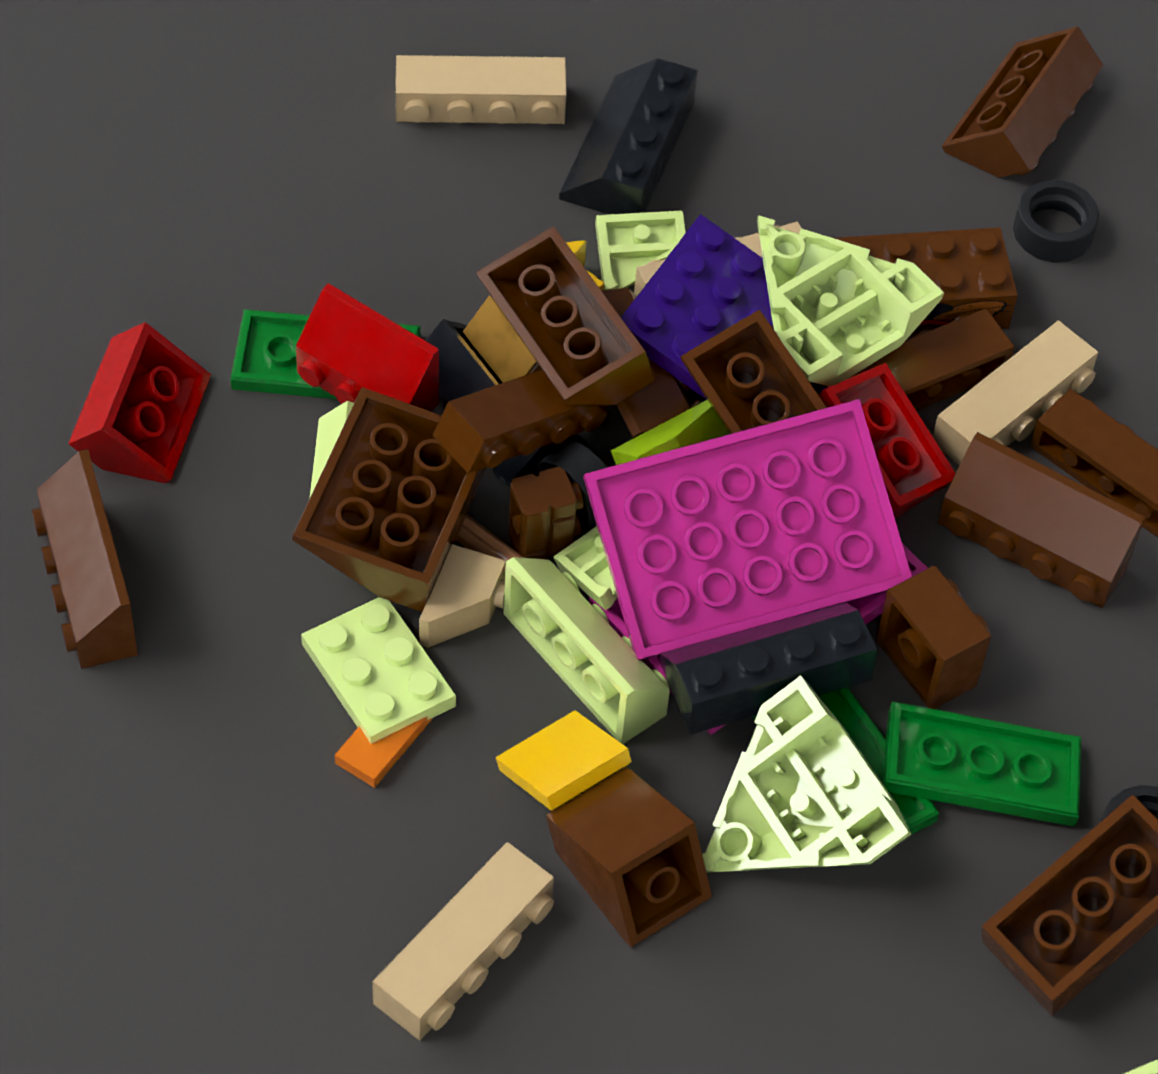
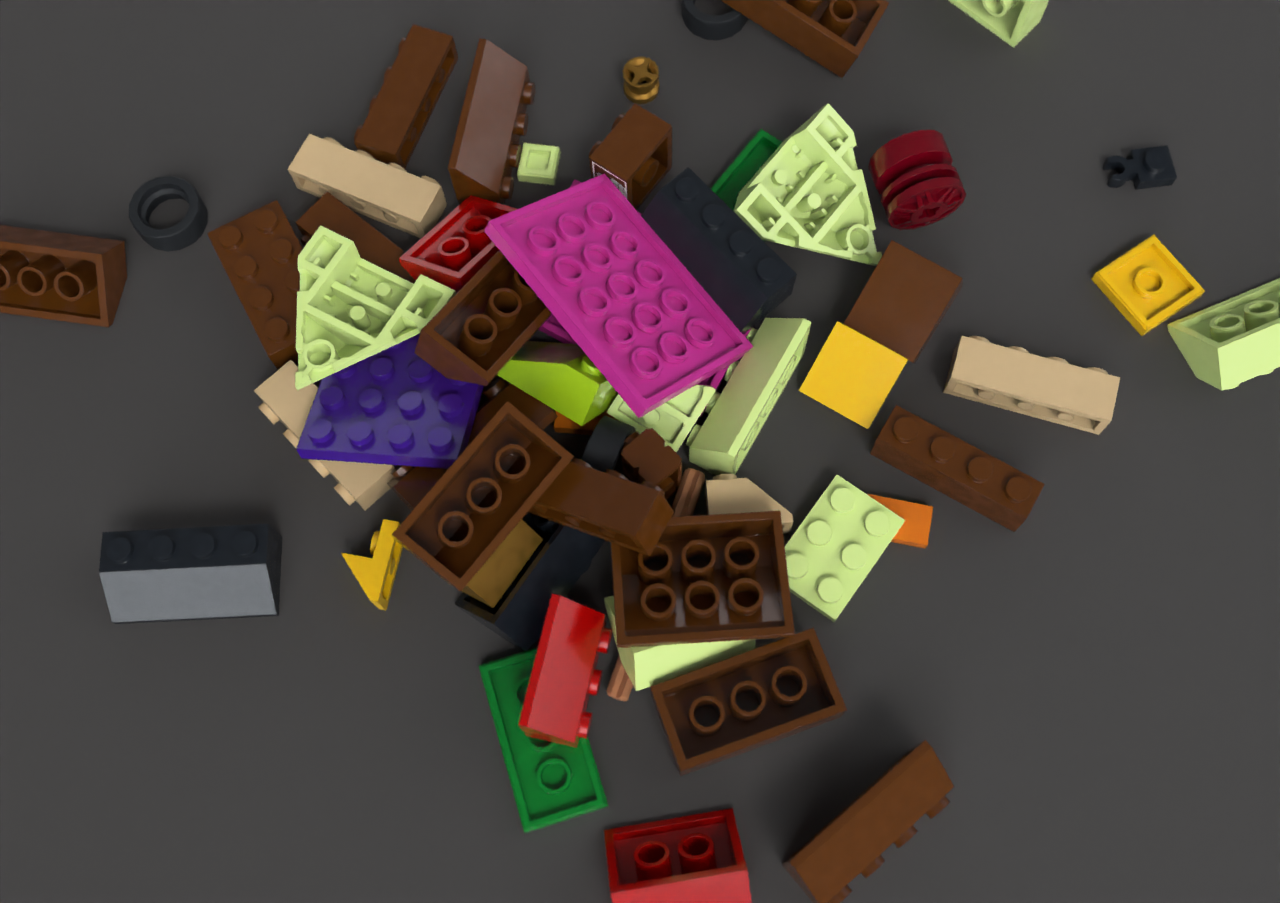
camera: 105 degrees left, 15 degrees up
(253, 510) = (747, 701): none -> reddish brown brick
(402, 811) = (957, 469): none -> reddish brown brick
(480, 89) = (179, 732): tan brick -> none
(633, 241) = (317, 520): yellowish green wing -> none
(779, 922) = (916, 179): none -> dark red wheel
(982, 764) = (709, 114): green tile -> none
(986, 574) = (538, 164): none -> yellowish green tile
(1060, 698) = (637, 71): none -> pearl gold wheel

